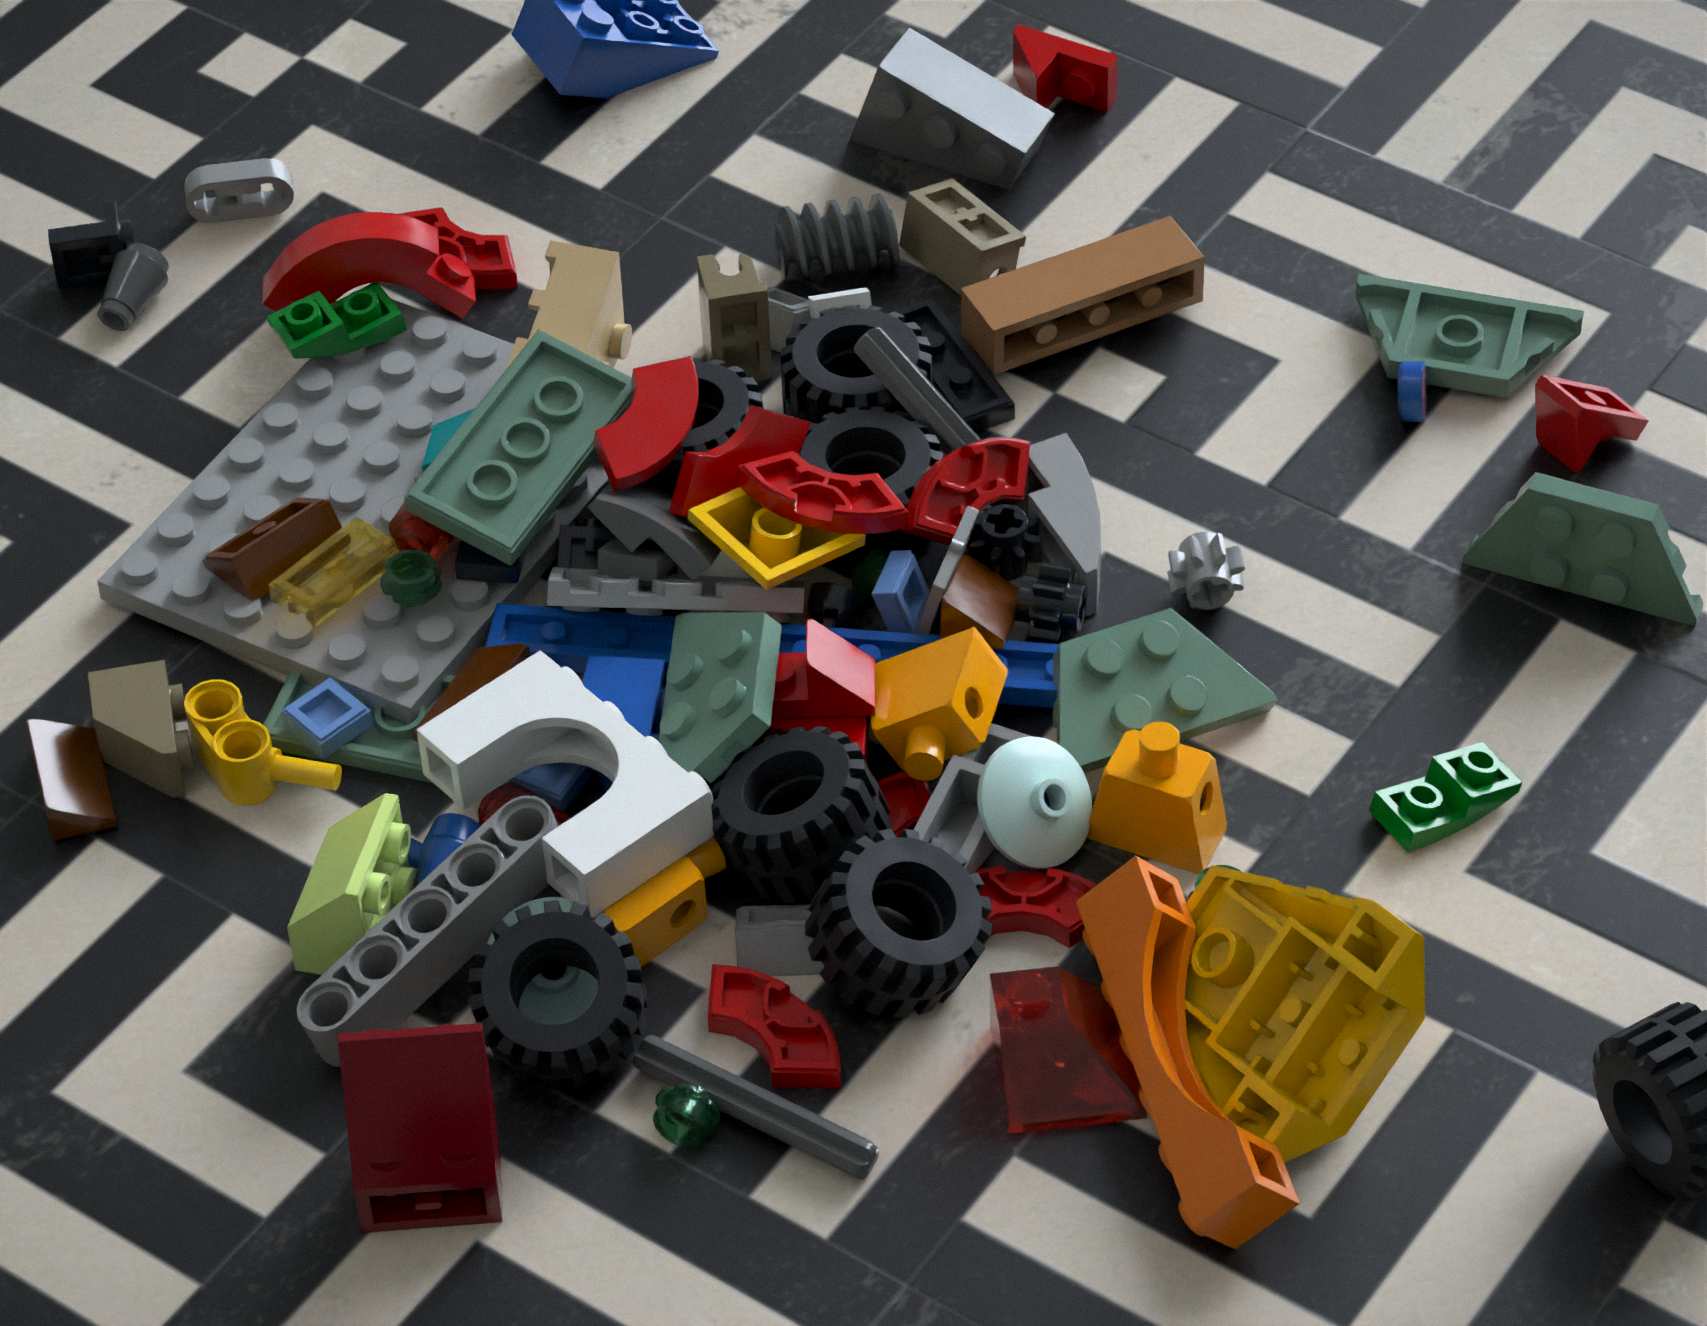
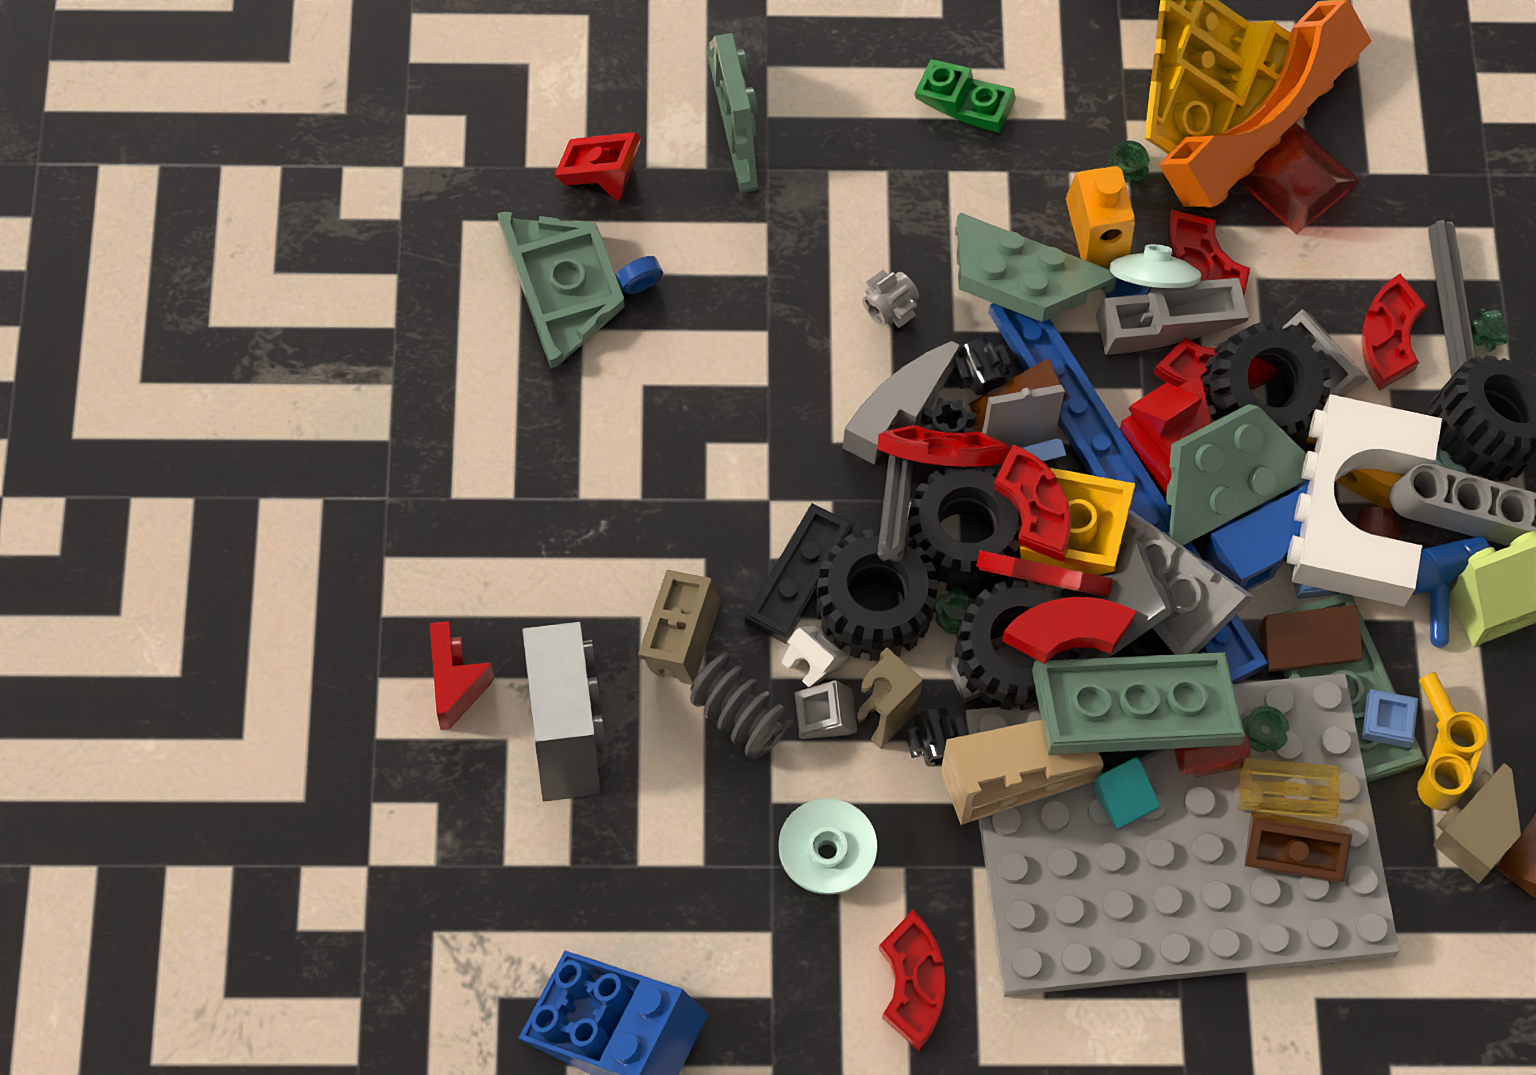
camera: 130 degrees left, 20 degrees up
(323, 329) = (1074, 967): green slope -> none
(364, 251) = (1013, 988): red arch -> none
(643, 229) = (832, 824): none -> light aqua dish
(661, 345) = (930, 734): none -> black gear
(925, 888) = (1304, 278): black tyre -> none
(937, 701) = (1129, 362): light orange torso -> none
(1082, 294) = (691, 509): medium nougat brick -> none

